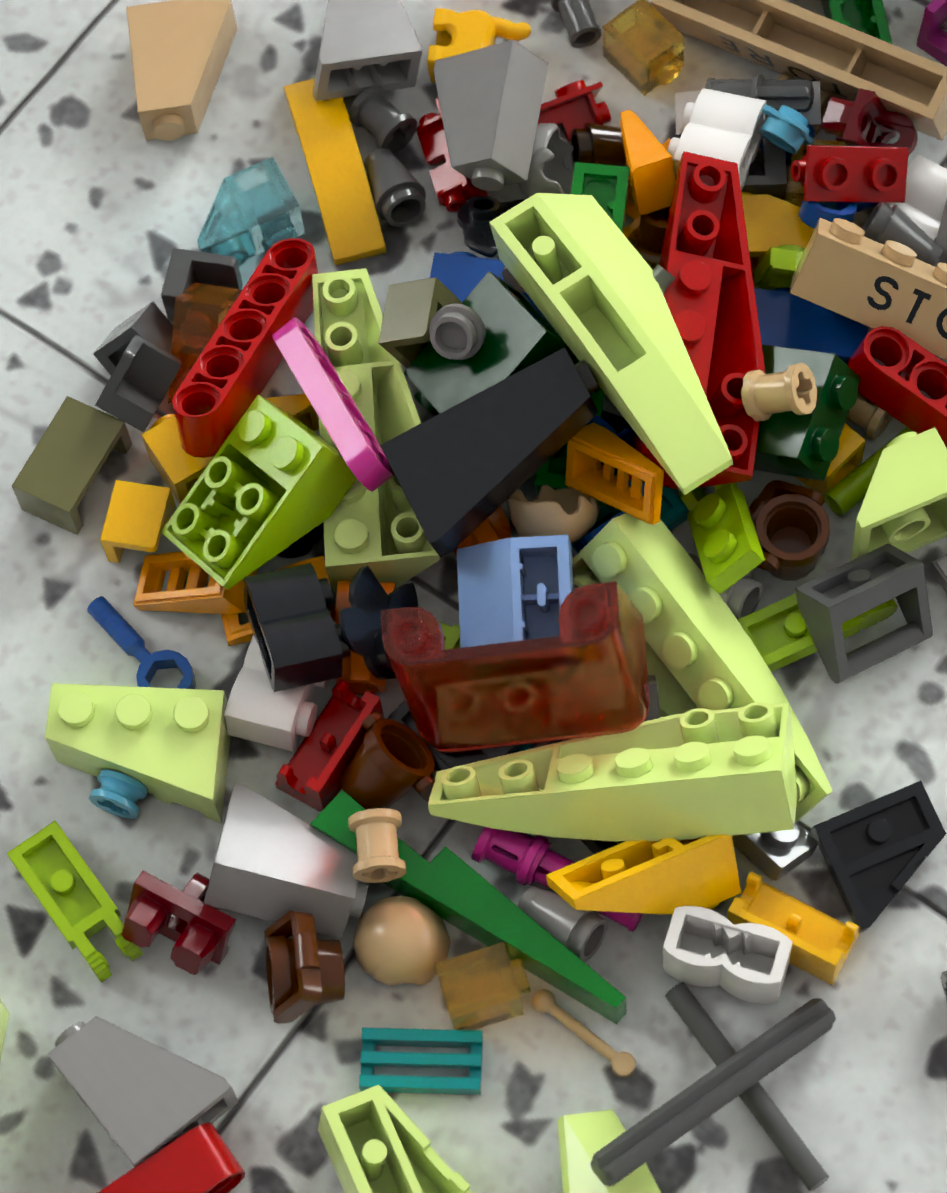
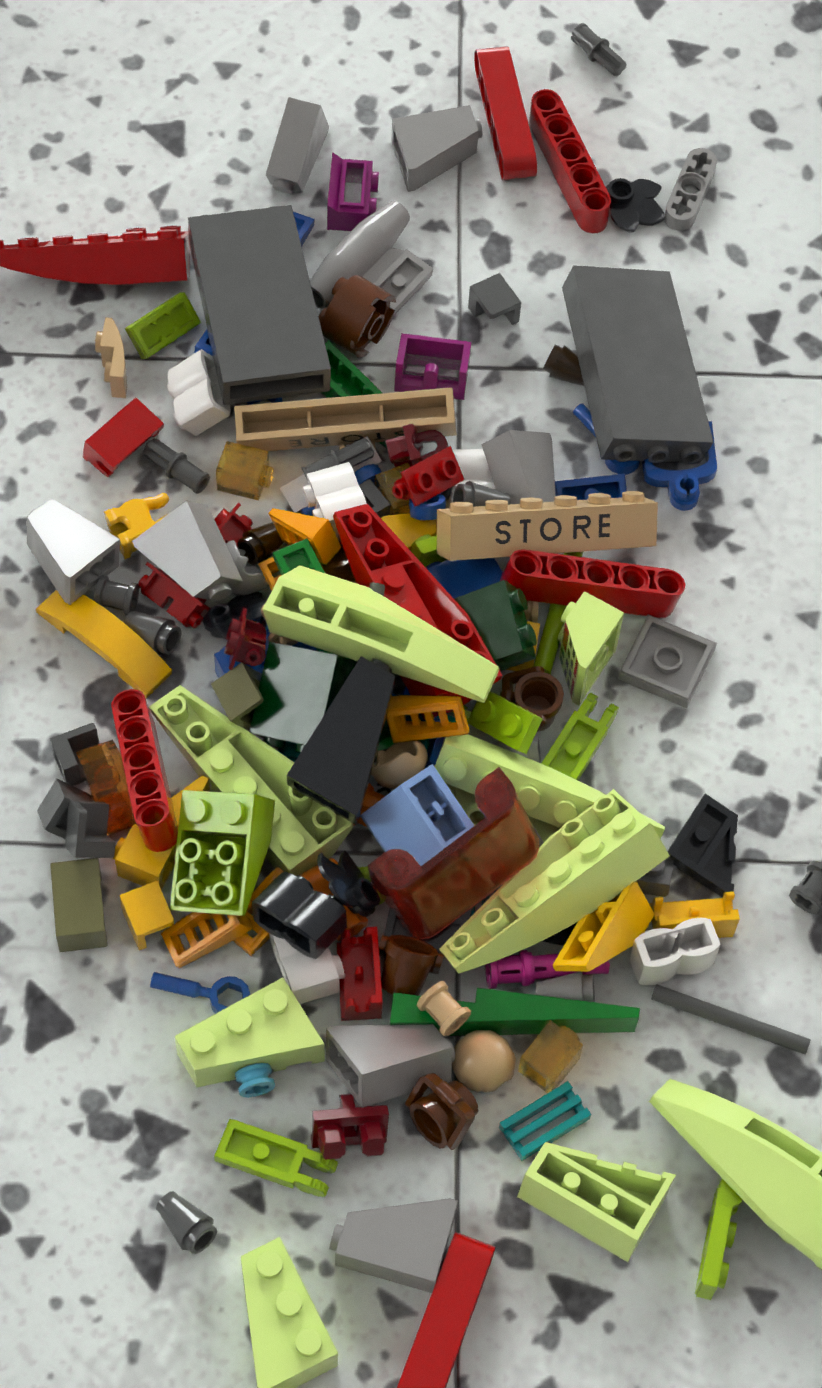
camera: 45 degrees left, 5 degrees down
(251, 213) = (80, 691): clear light blue slope -> none
(333, 404) = (230, 770): beam -> none
(457, 332) = (278, 686): light grey plate -> none
(464, 257) = (245, 641): none -> dark red hinge
(622, 1063) = (654, 1051): tan hinge -> none
(712, 1092) = (722, 1031): dark grey axle -> none
(779, 392) = (489, 618): tan bush -> none
(786, 128) = (372, 471): medium azure plate -> none
(856, 589) = (597, 710): dark grey tile -> none

